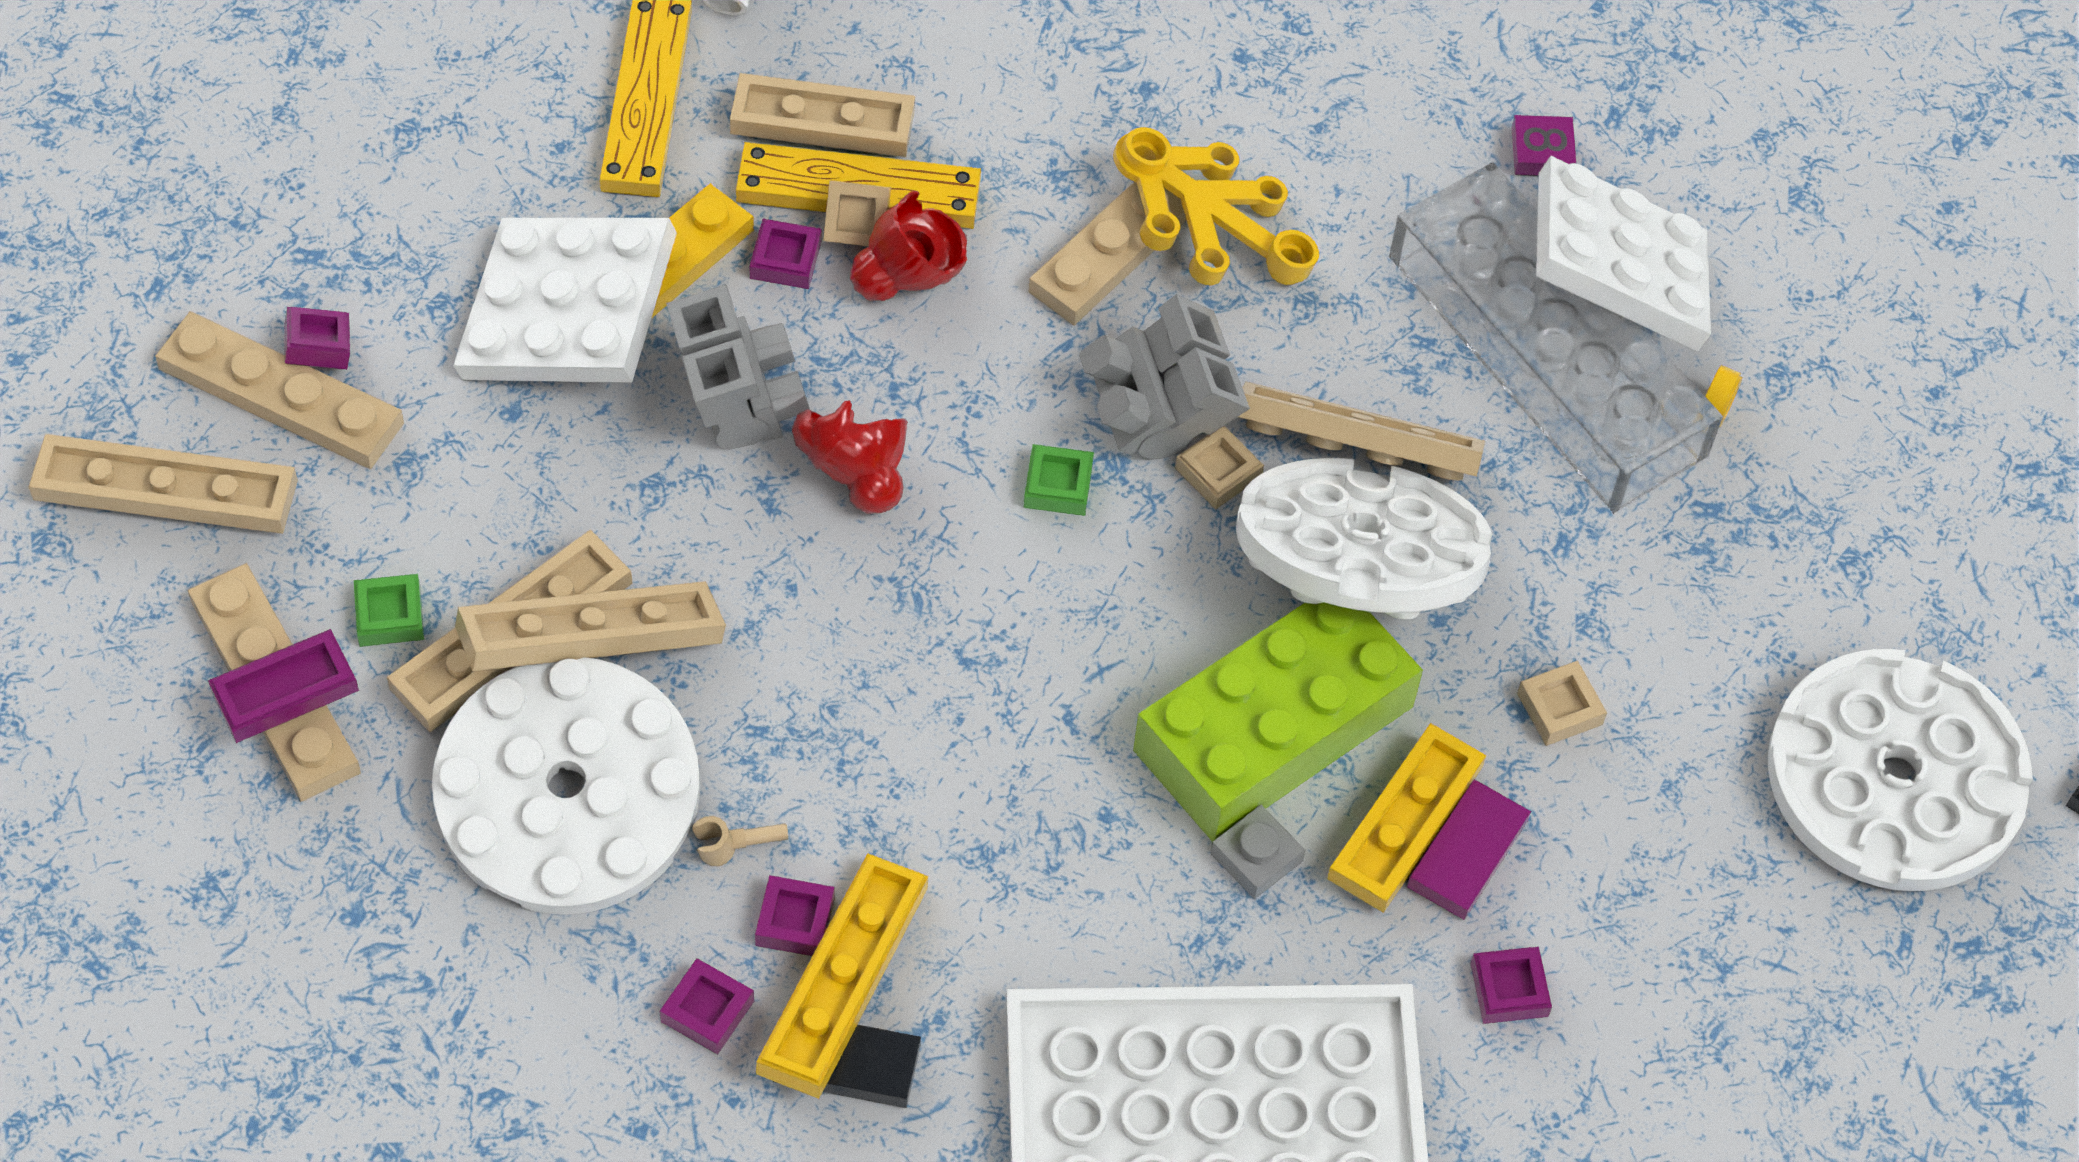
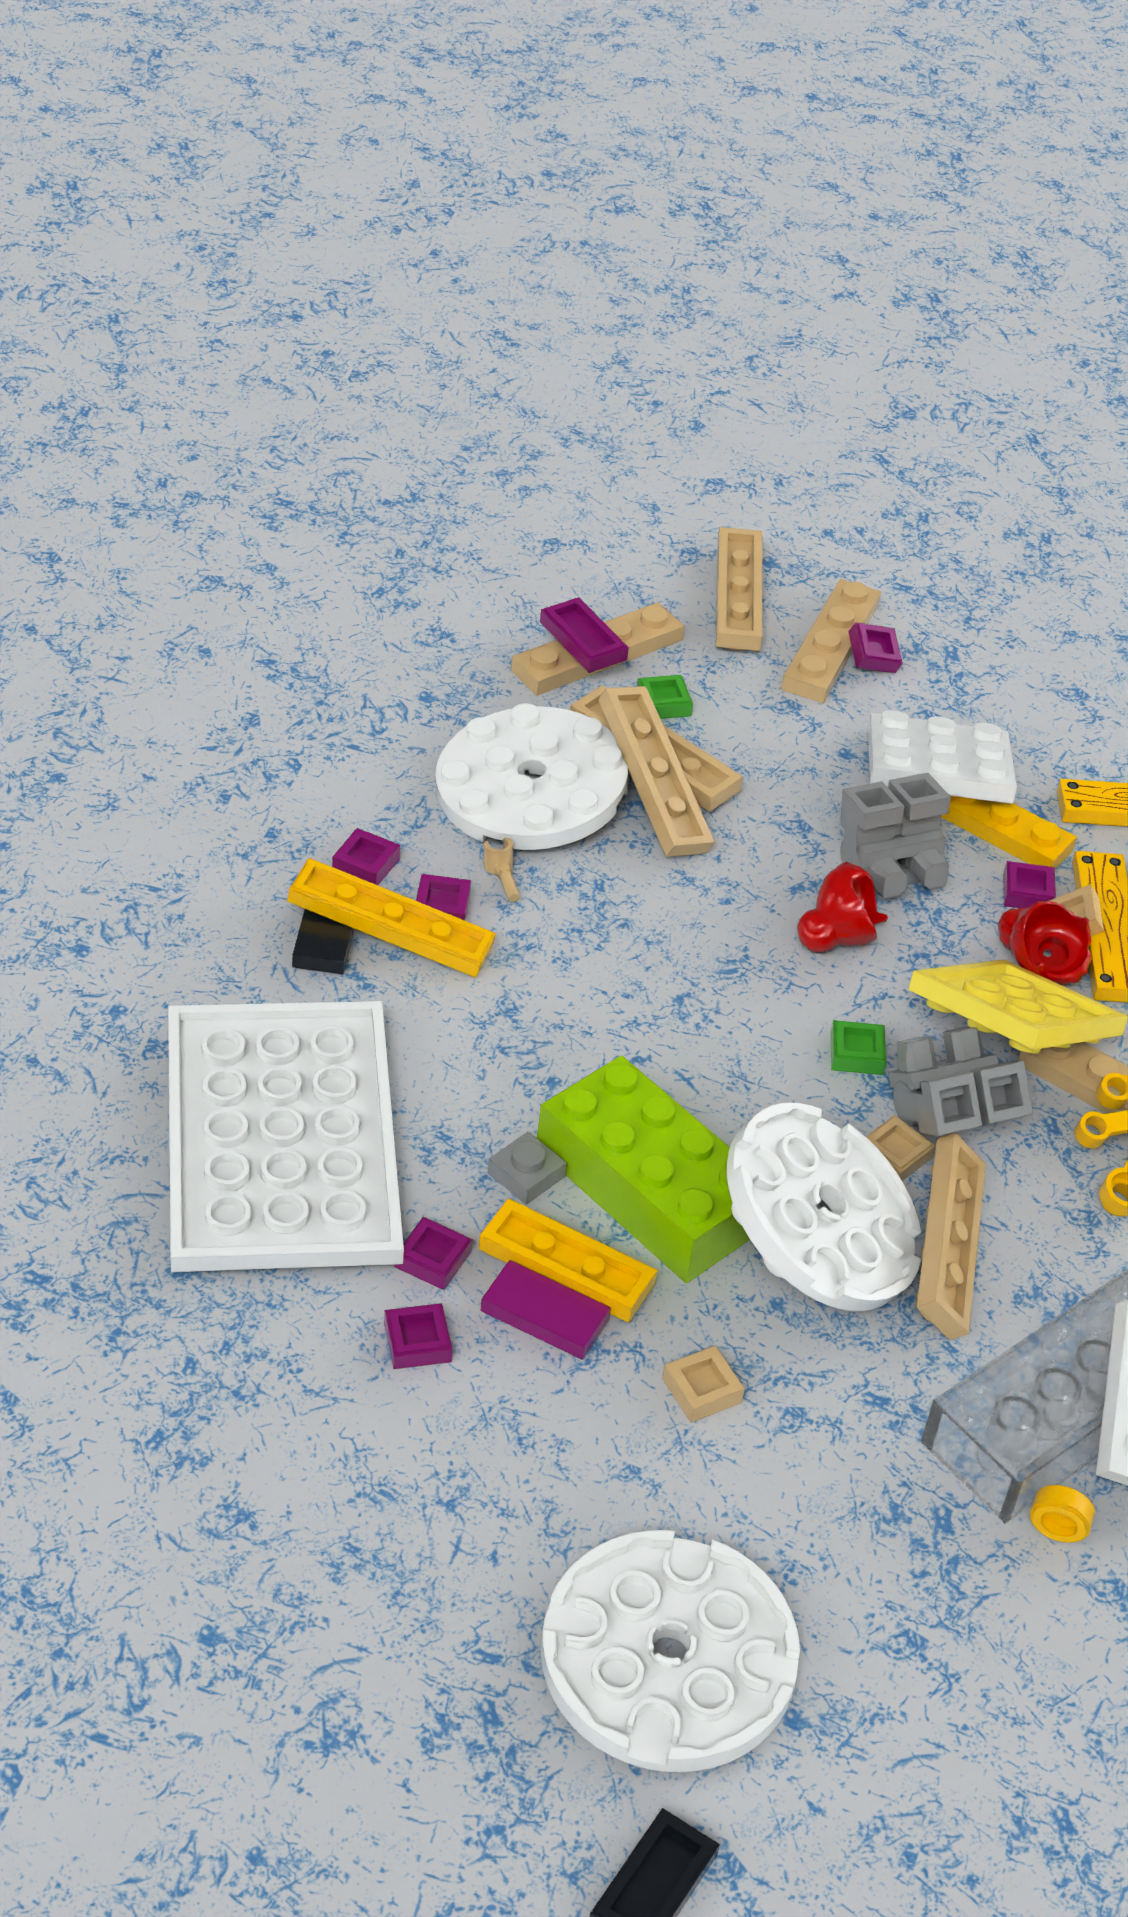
camera: 85 degrees right, 15 degrees down
(1046, 291) = (1017, 1005): none -> light yellow plate
(1389, 956) = (434, 1253): none -> magenta tile

